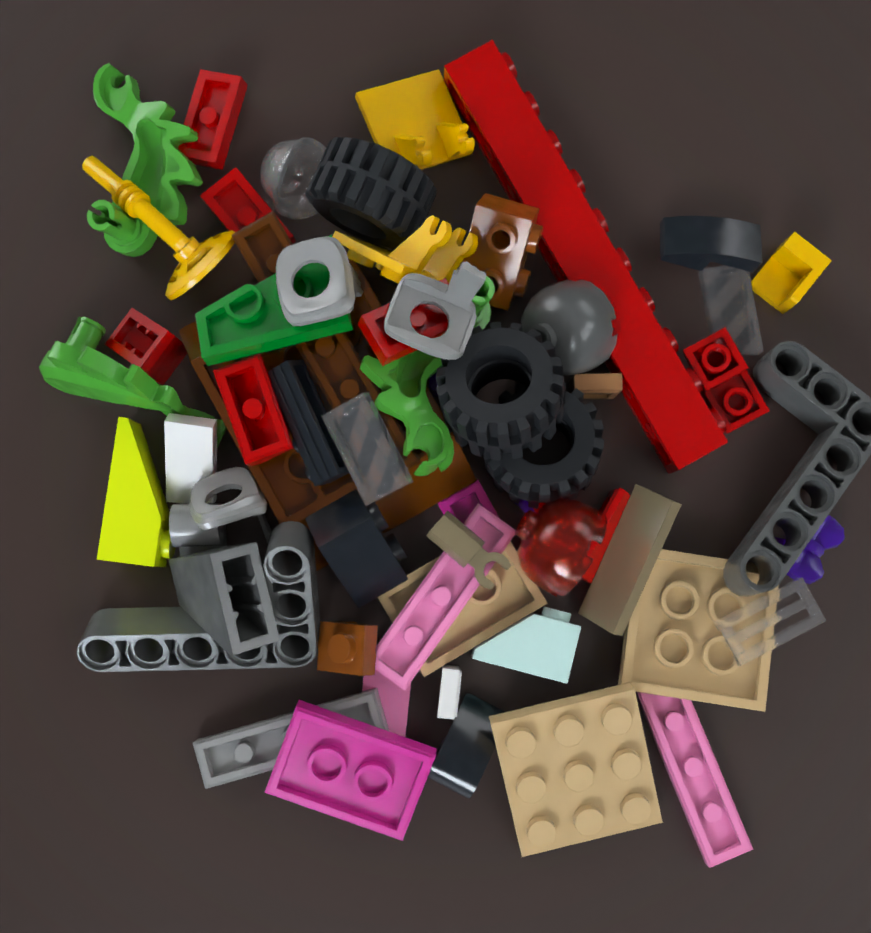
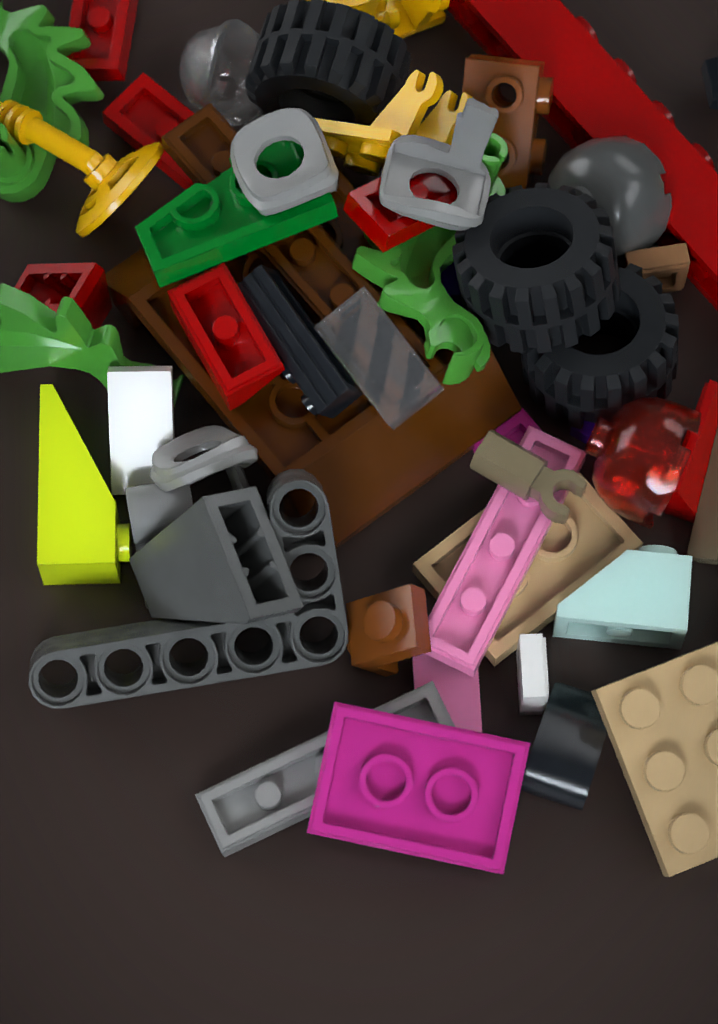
camera: 10 degrees left, 15 degrees down
(356, 548) = (383, 499): black brick -> none

